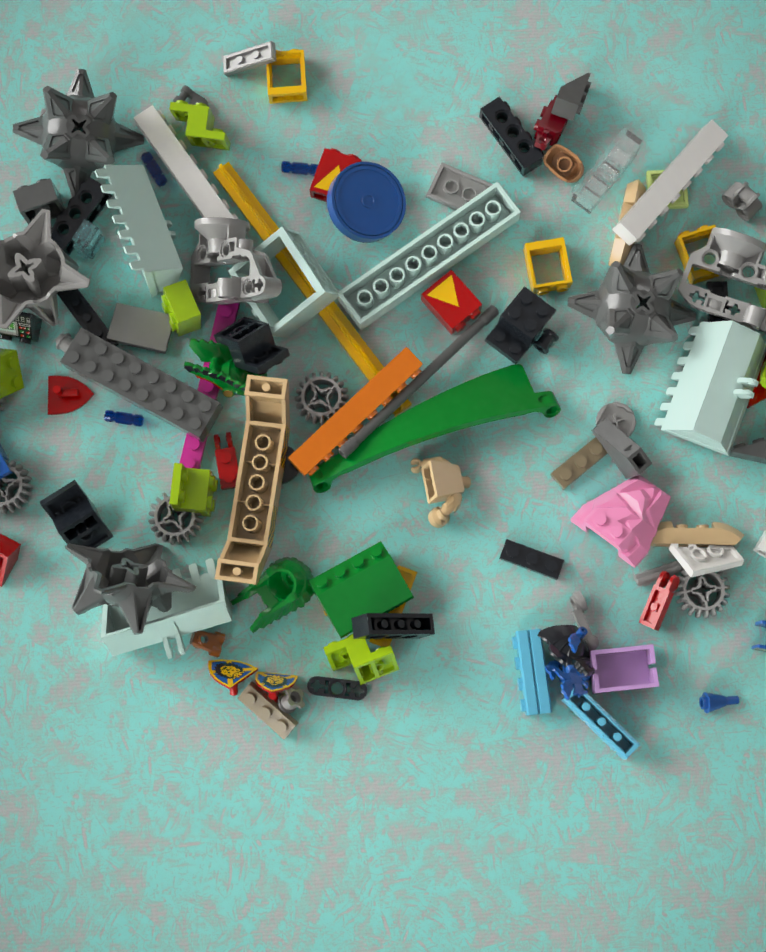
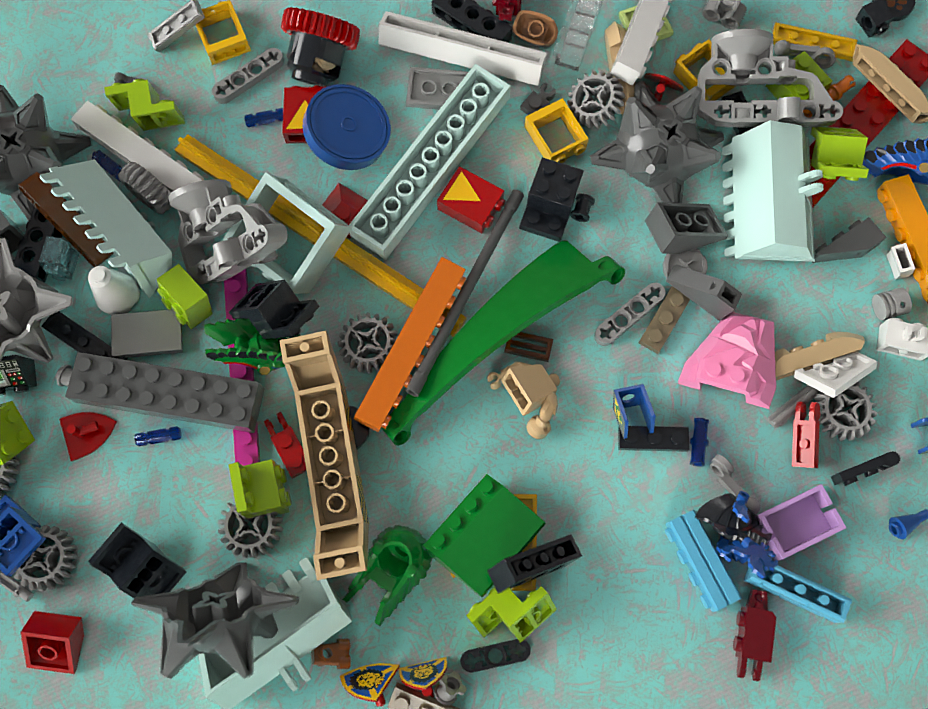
camera: 20 degrees left, 5 degrees down
(97, 200) = (51, 208): none -> reddish brown beam
(124, 283) = (113, 290): none -> white cone
(178, 201) = (145, 187): none -> light grey gear
(296, 121) = (250, 78): none -> light grey beam
(342, 270) = (344, 203): none -> red slope
(364, 120) = (317, 44): none -> piece
(458, 456) = (528, 354): none -> reddish brown tile
(492, 161) = (461, 48): none -> white brick
(530, 522) = (640, 398): none -> blue piece
(543, 232) = (537, 101): none -> dark grey plate
(550, 444) = (631, 316): none -> light grey beam
(553, 744) = (755, 634): none -> dark red hinge
(568, 575) = (699, 442): none -> clear blue pin
(578, 250) = (584, 109): none -> light grey gear
(627, 387) = (684, 226): none -> dark grey slope
(653, 257) = (663, 83): none -> red shield
(700, 645) = (867, 468): none -> black hinge

